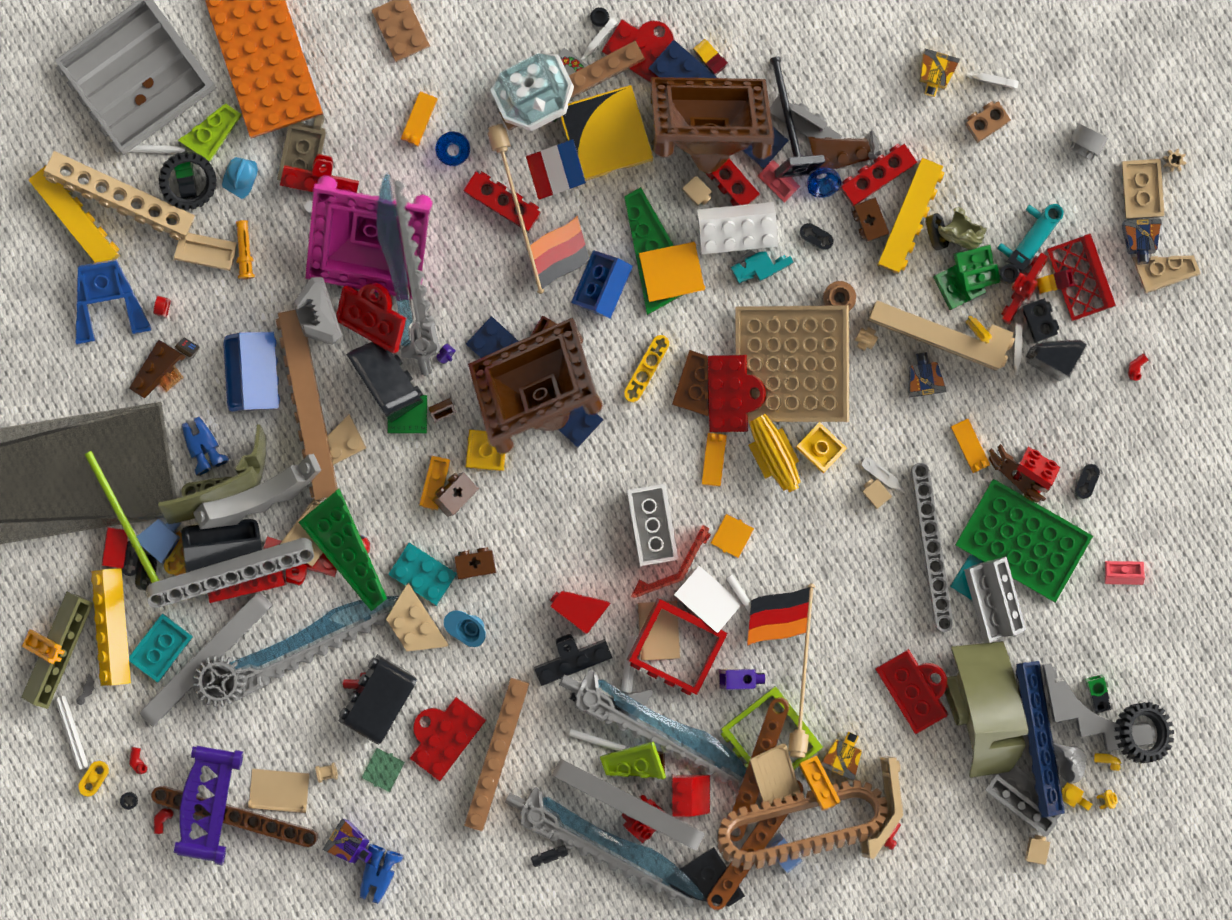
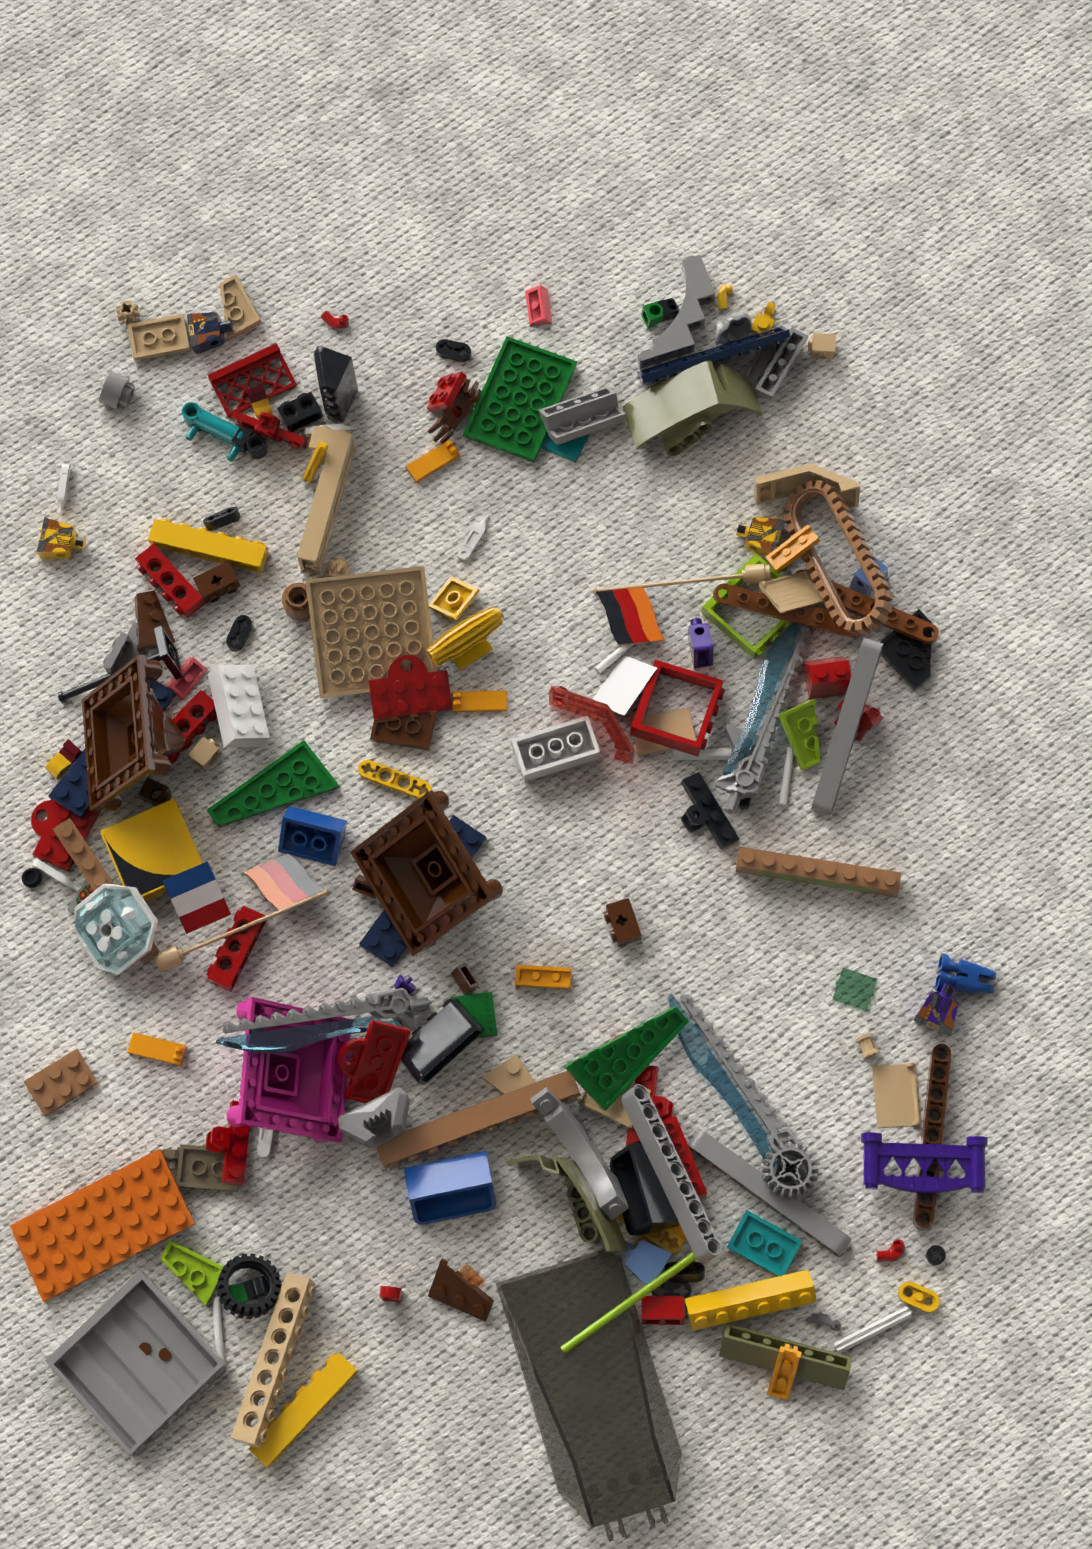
camera: 100 degrees left, 15 degrees down
(102, 283) = (373, 1364): blue wing -> none
(160, 818) = (948, 1217): red arm -> none
(187, 347) = (432, 1262): slope -> none
(201, 444) = (535, 1231): blue piece -> none
(206, 251) = (325, 1256): tan piece -> none
(240, 177) = (239, 1233): dark azure piece -> none
(244, 259) = (328, 1213): light orange pin -> none
(351, 683) = (768, 1027): red arm -> none
(377, 699) = (782, 998): black windscreen -> none
(413, 623) = (694, 977): tan wing -> none
(423, 573) = (641, 977): teal plate -> none
(445, 736) = (808, 929): red plate -> none
(448, 139) = (183, 997): clear blue piece -> none
(464, 491) = (552, 951): brick -> none
(465, 627) = (692, 921): dark azure piece -> none
(481, 454) = (501, 930): yellow tile -> none
(547, 824) = (881, 812): piece -> none
(549, 856) = (913, 806): black axle -> none
(579, 609) = (655, 807): red slope -> none
(672, 271) = (291, 766): light orange piece -> none
(732, 535) = (555, 672): light orange piece -> none
(759, 265) = (276, 683): teal plate -> none
(825, 186) = (185, 628): clear blue piece -> none
(875, 147) = (149, 587): flat silver piece -> none
(876, 493) = (492, 540): tan brick -> none
(915, 690) = (683, 477): red plate -> none
(925, 377) = (370, 510): torso -> none
(937, 555) = (545, 474): light grey beam -> none
(952, 289) = (272, 492): green slope -> none
(962, 231) = (220, 492): olive hair -> none
(976, 268) = (254, 477): green slope -> none
(990, 125) = (108, 484): medium nougat brick -> none
(1110, 799) = (760, 289): yellow plate -> none
(1125, 730) = (692, 276): black tyre -> none

